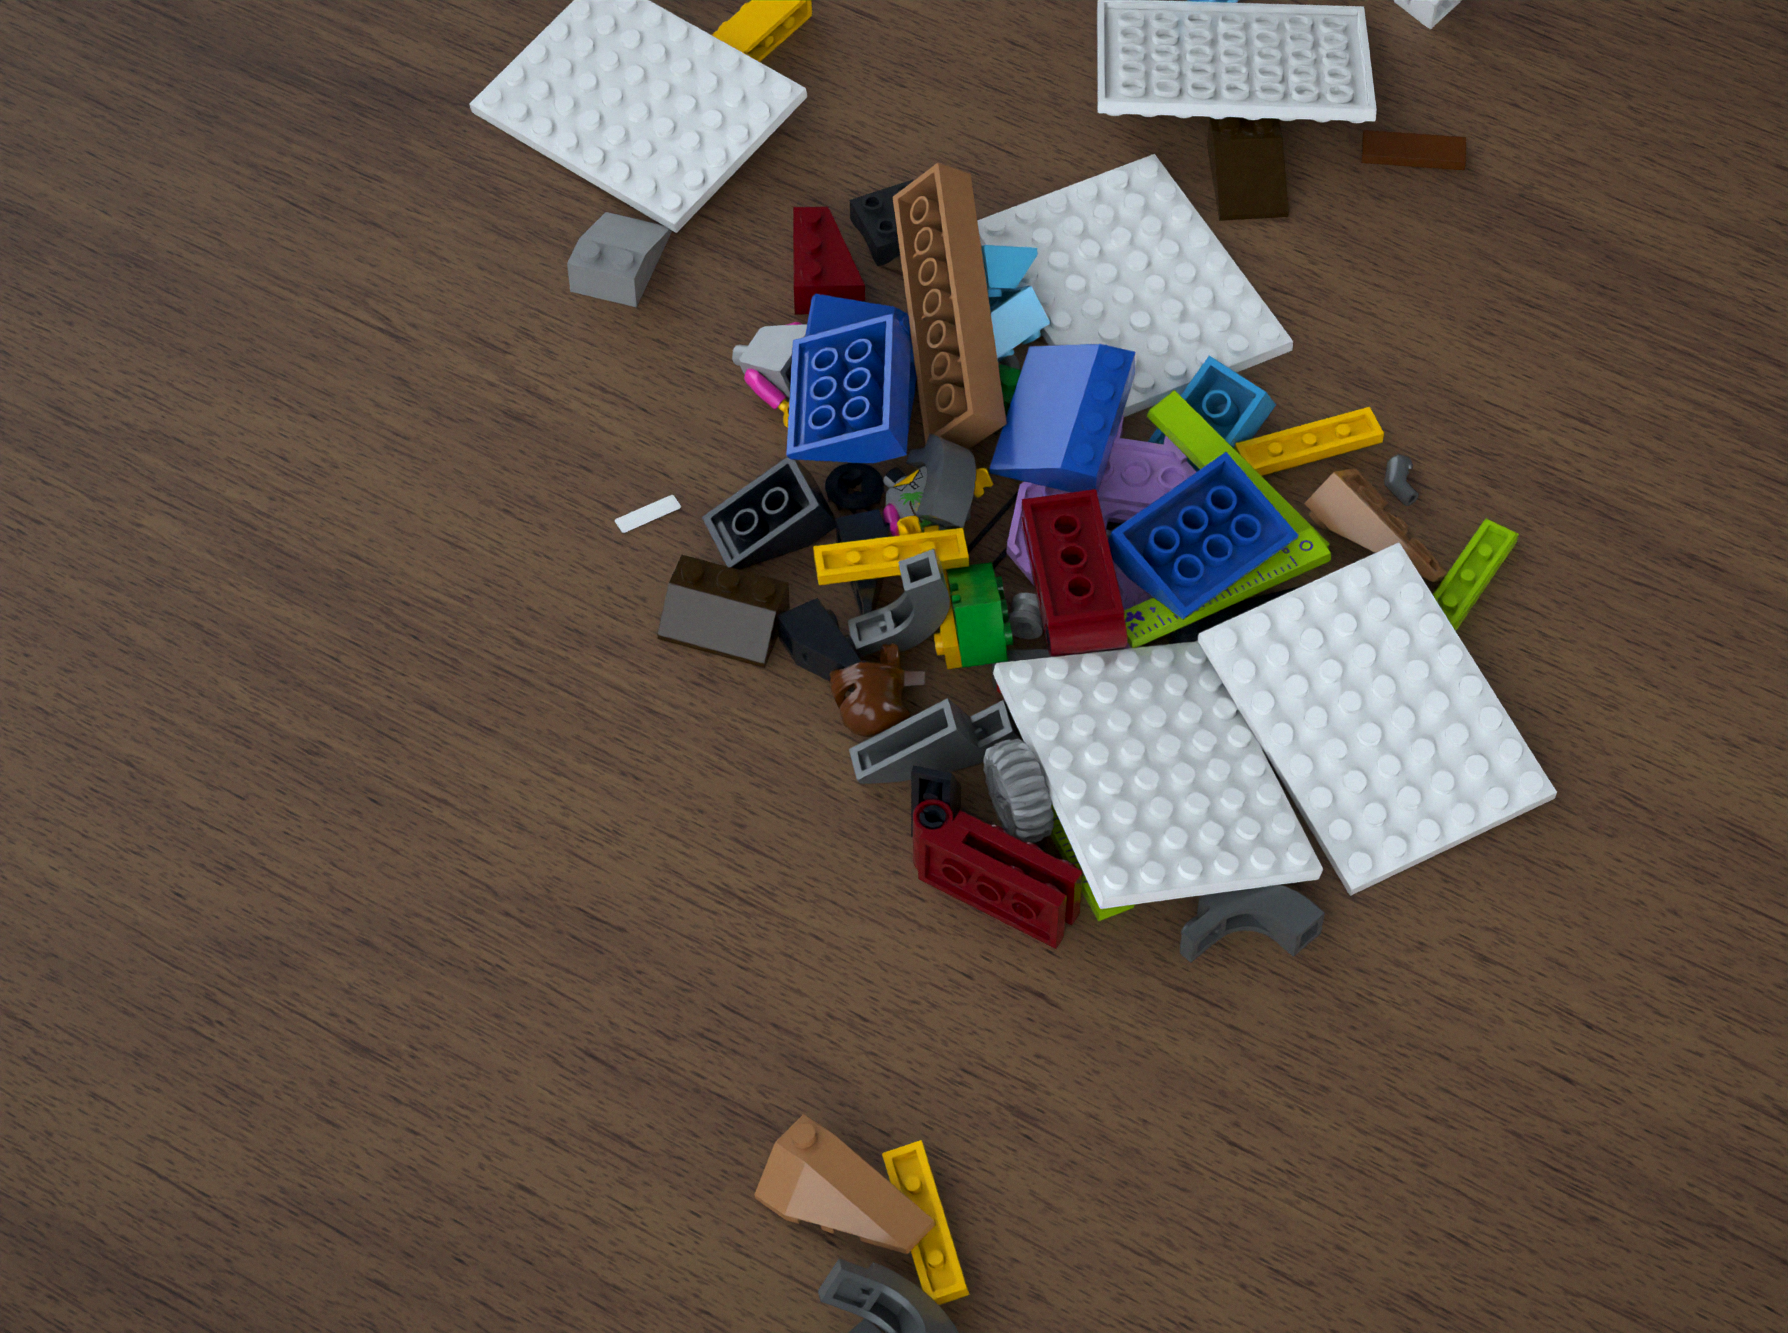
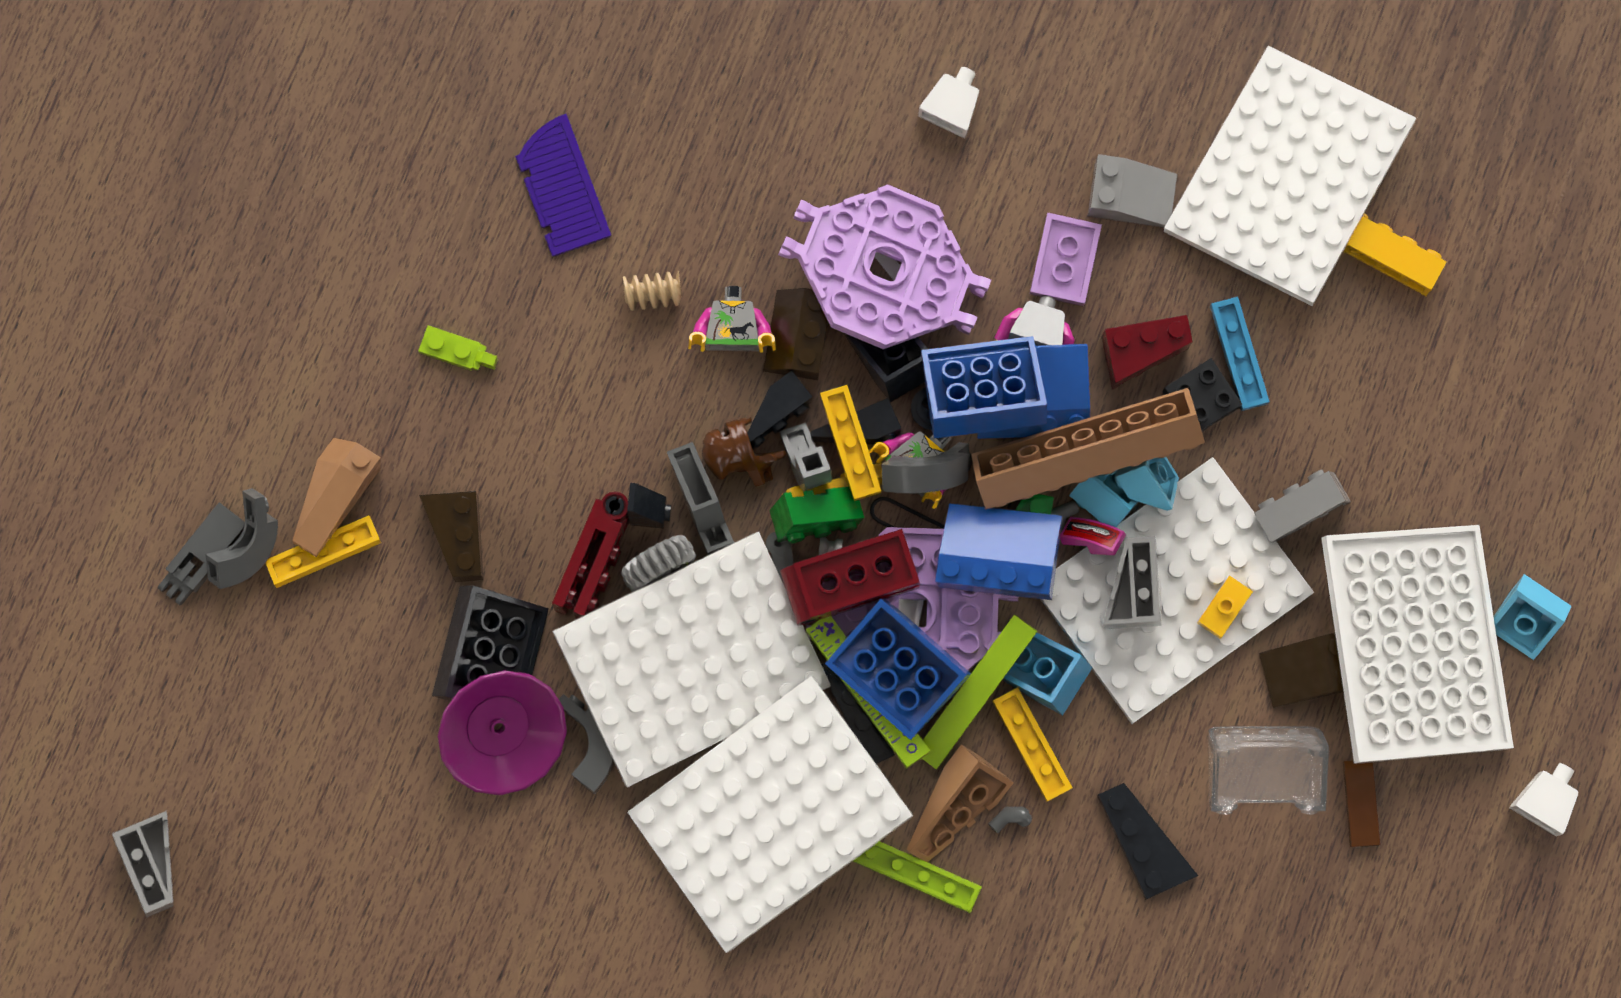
camera: 75 degrees right, 25 degrees up
(450, 863) = (562, 188): none -> dark purple piece
(456, 411) = (951, 102): none -> white torso
(604, 484) = (900, 227): none -> lavender plate
(627, 764) = (652, 291): none -> tan piece
(657, 1019) = (456, 350): none -> lime hinge
(689, 328) = (1065, 259): none -> lavender plate
(699, 677) = (732, 326): none -> torso
(842, 180) = (1239, 353): none -> dark azure plate
(929, 1040) = (458, 532): none -> dark brown wedge
(1048, 139) = (1301, 505): none -> light grey wedge
(1059, 327) = (1097, 536): none -> slope
(1104, 1028) = (488, 637): none -> black slope
(1127, 295) = (1136, 587): none -> light grey wedge
(1163, 228) = (1224, 607): none -> yellow plate
(1231, 1003) = (518, 751): none -> magenta dish
(1363, 216) = (1267, 767): none -> clear windscreen
(1445, 354) = (1146, 847): none -> black wing

